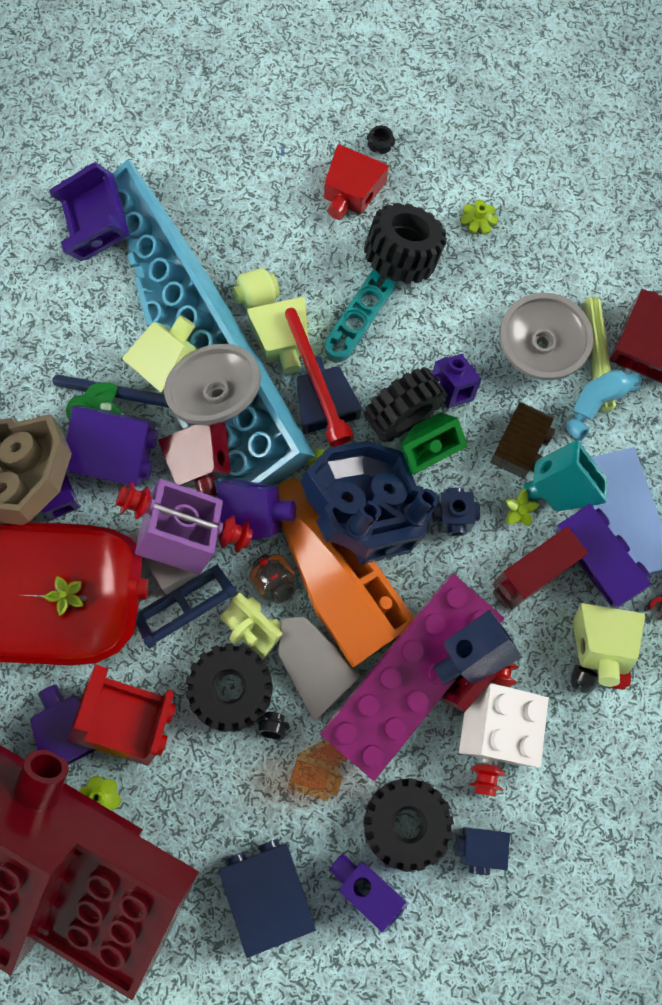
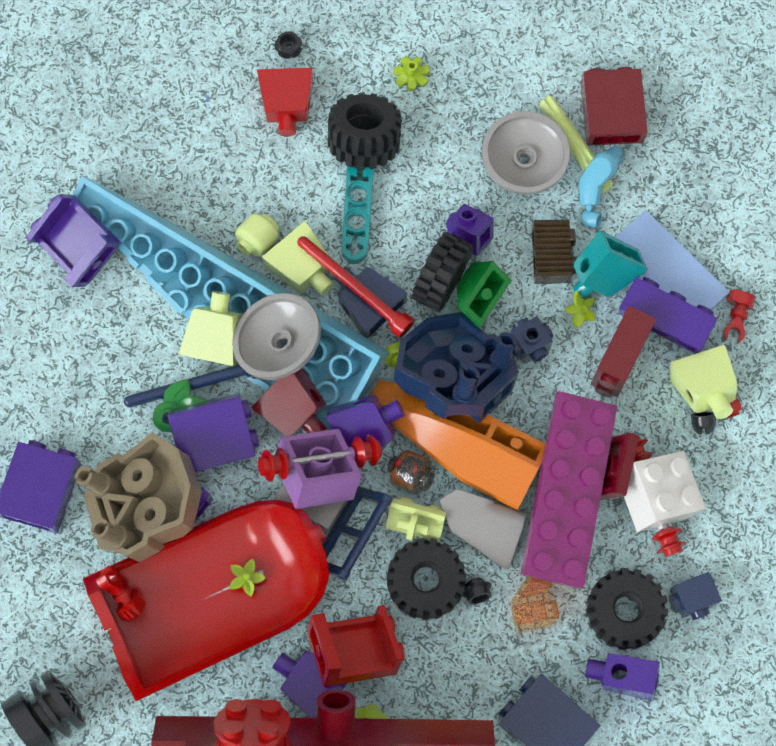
camera: 25 degrees left, 0 degrees up
(477, 651) = (612, 441): dark blue torso -> none

